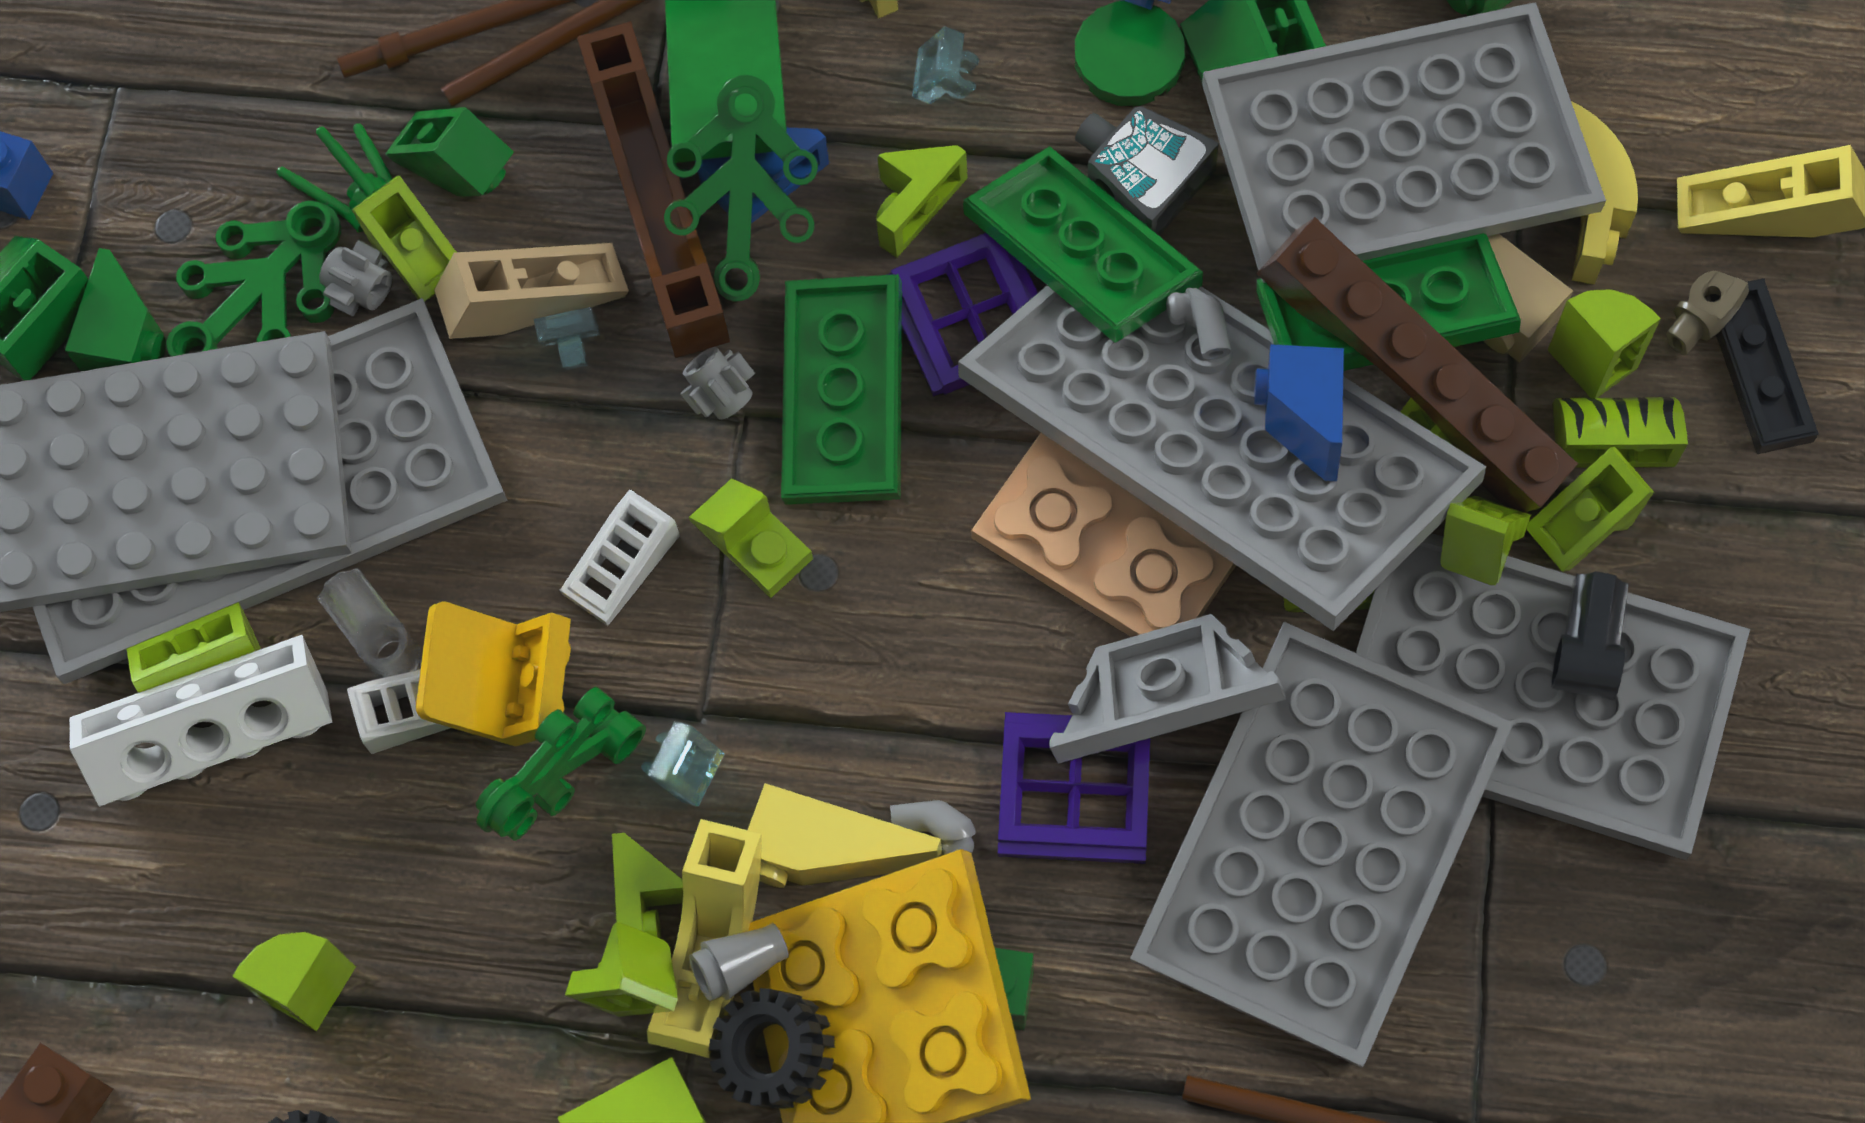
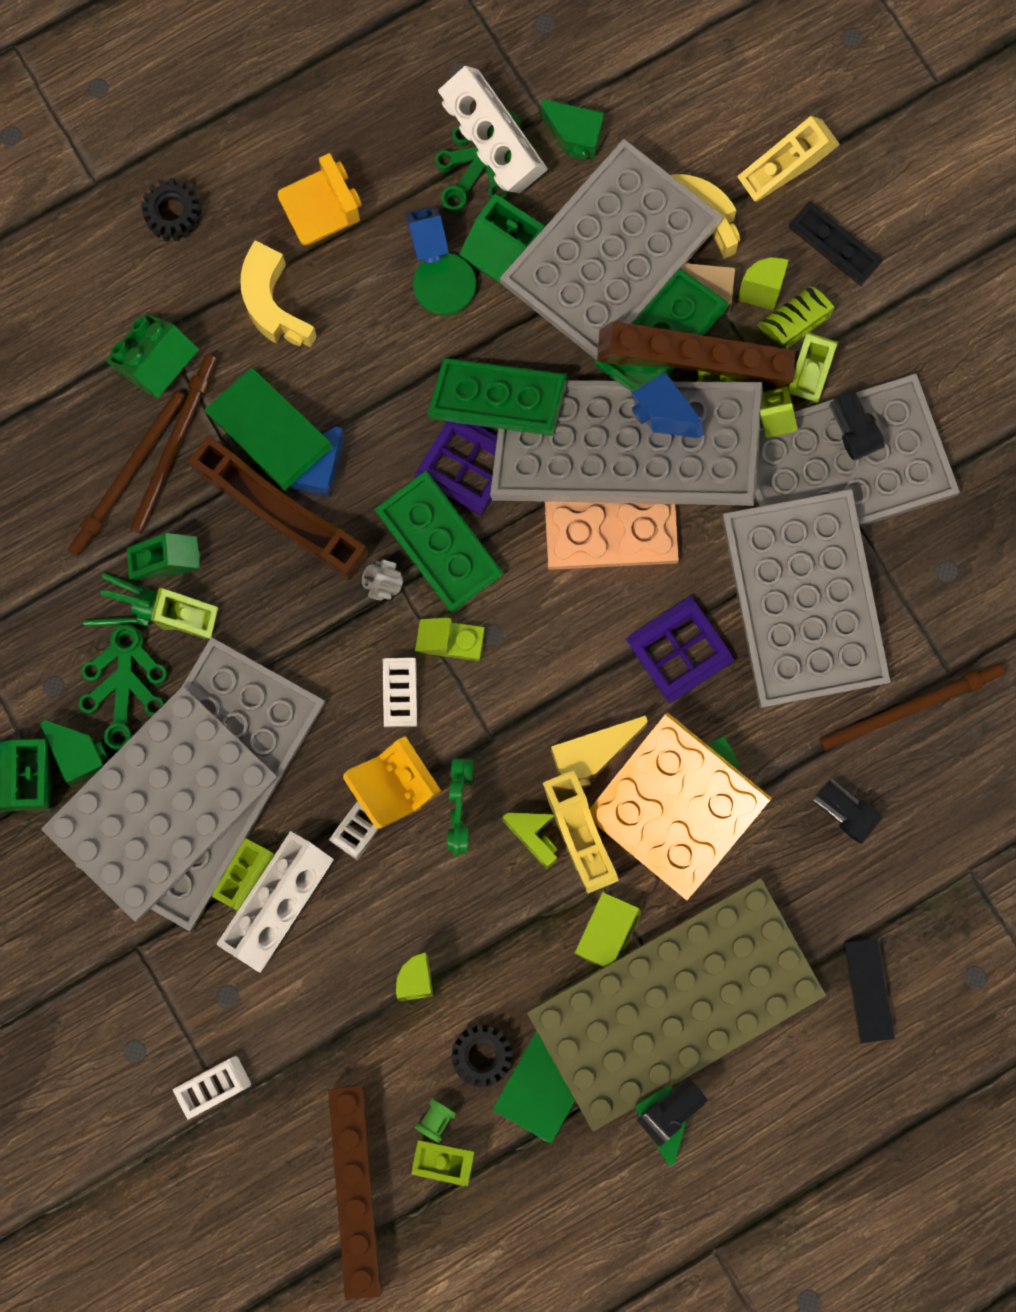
camera: 40 degrees left, 10 degrees up
(355, 278) = (171, 650): light grey gear -> none
(369, 624) = (311, 804): clear piece -> none
(512, 287) = (255, 597): tan slope -> none
(568, 332) = (292, 605): clear light blue tile -> none
(631, 977) = (561, 871): lime slope -> none
(684, 763) = (504, 762): clear light blue tile -> none
(736, 960) = (601, 832): light grey cone -> none
(740, 1041) = (630, 871): black tyre -> none
(742, 177) = (322, 477): green plant -> none
(921, 185) = (399, 416): lime slope -> none
(938, 819) = (633, 706): light grey arm -> none
(939, 67) = (363, 353): clear light blue tile -> none
(1148, 163) = (496, 336): torso -> none
(1161, 686) = (689, 578): light grey wing -> none
(1206, 316) = (585, 395): light grey arm -> none
(1702, 318) = (796, 239): dark tan piece -> none

